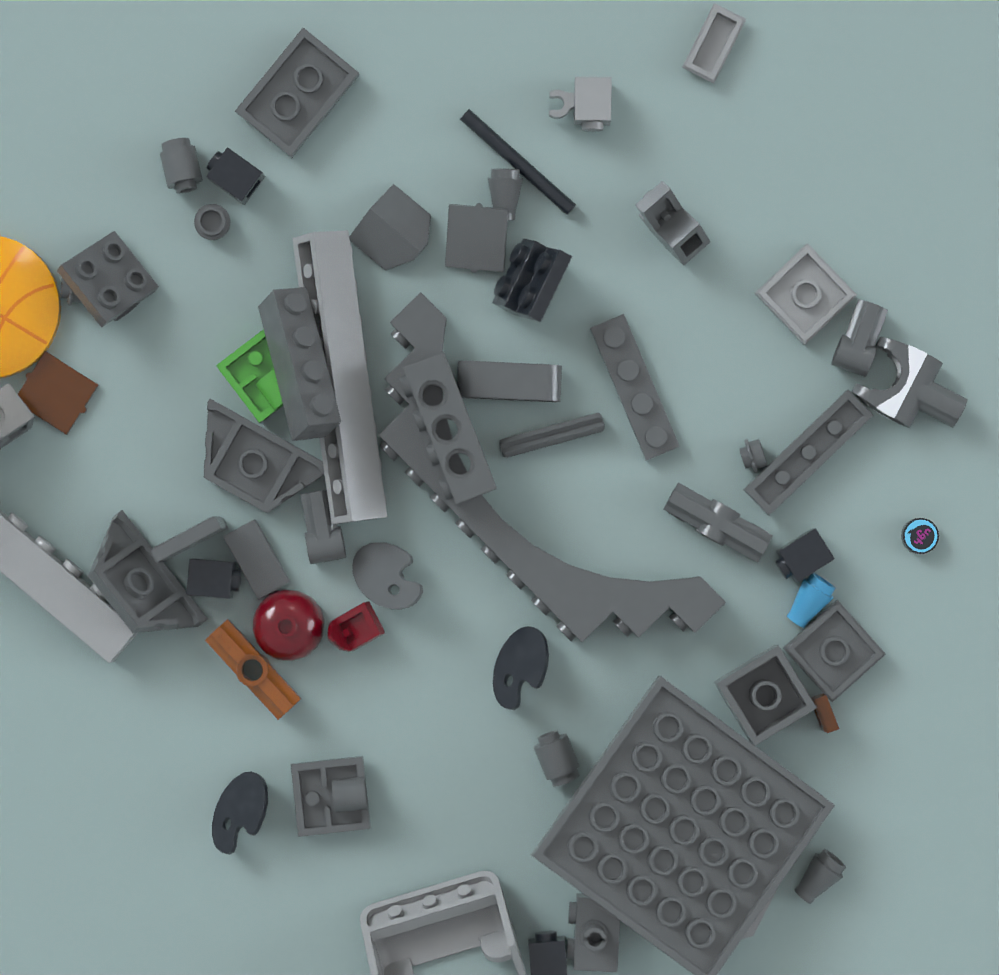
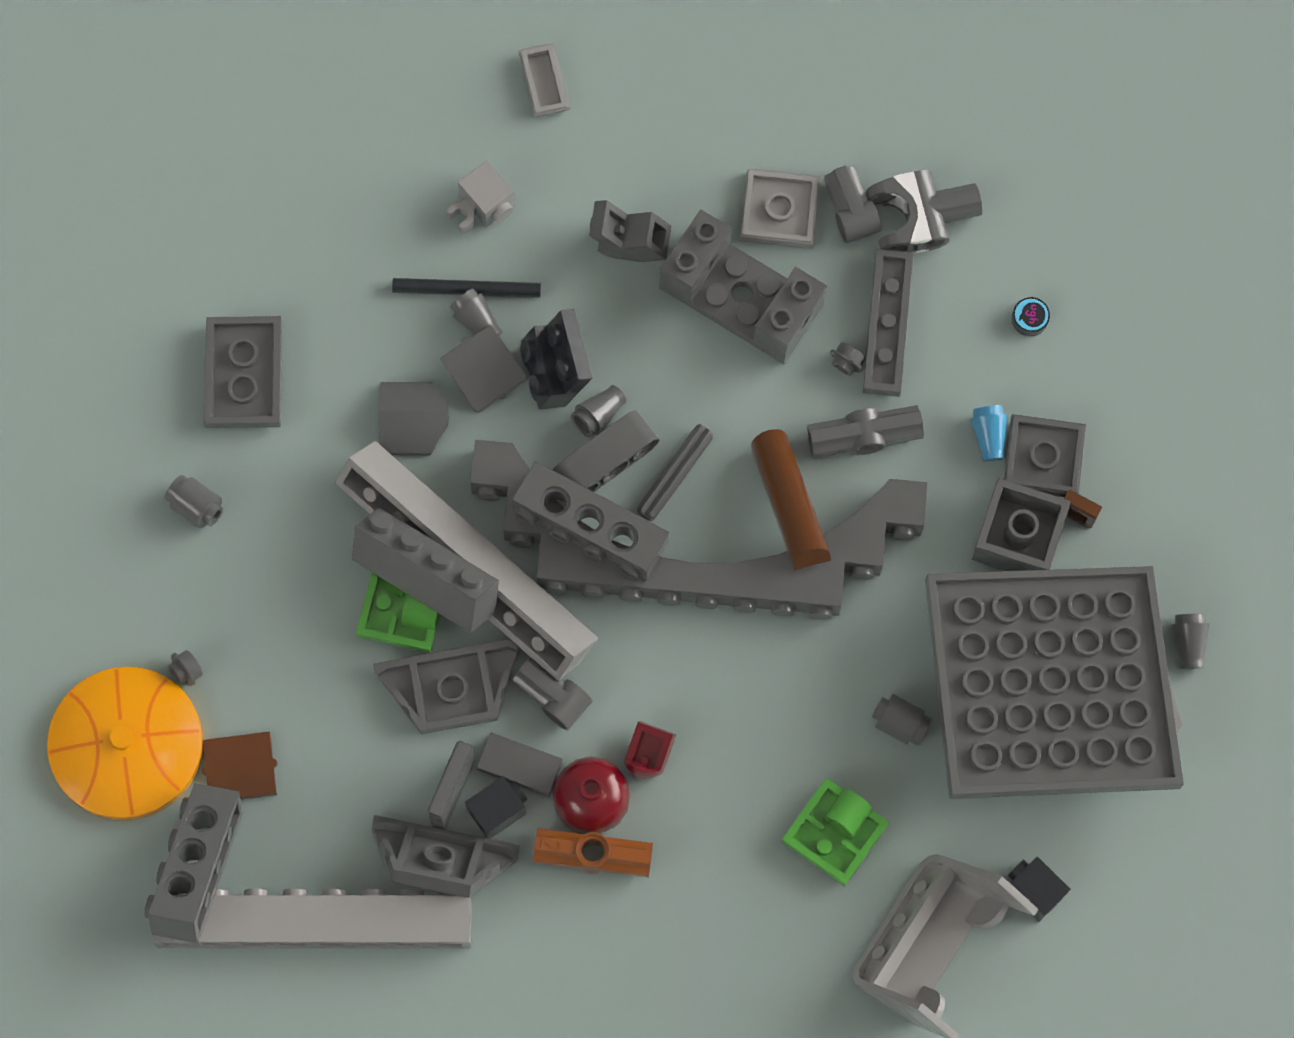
camera: 45 degrees left, 15 degrees down
(108, 279) = (209, 636): dark grey plate -> none
(212, 222) = (257, 526): dark grey plate -> none
(234, 175) = (245, 474): black brick -> none
(245, 804) = (676, 969): black piece -> none
(330, 796) = (745, 904): dark grey plate -> none
(381, 567) = (627, 688): dark grey piece -> none
(439, 798) = (835, 831): none -> bright green plate
(526, 659) = (803, 661): black piece -> none
(534, 341) = (596, 412): none -> dark grey cone
(595, 936) = (1055, 833): dark grey brick -> none
(614, 530) = (789, 499): none -> reddish brown brick
(634, 387) = (708, 383): dark grey plate -> none
(711, 299) = (708, 268): none -> dark grey plate
(803, 556) = (955, 401): black brick -> none

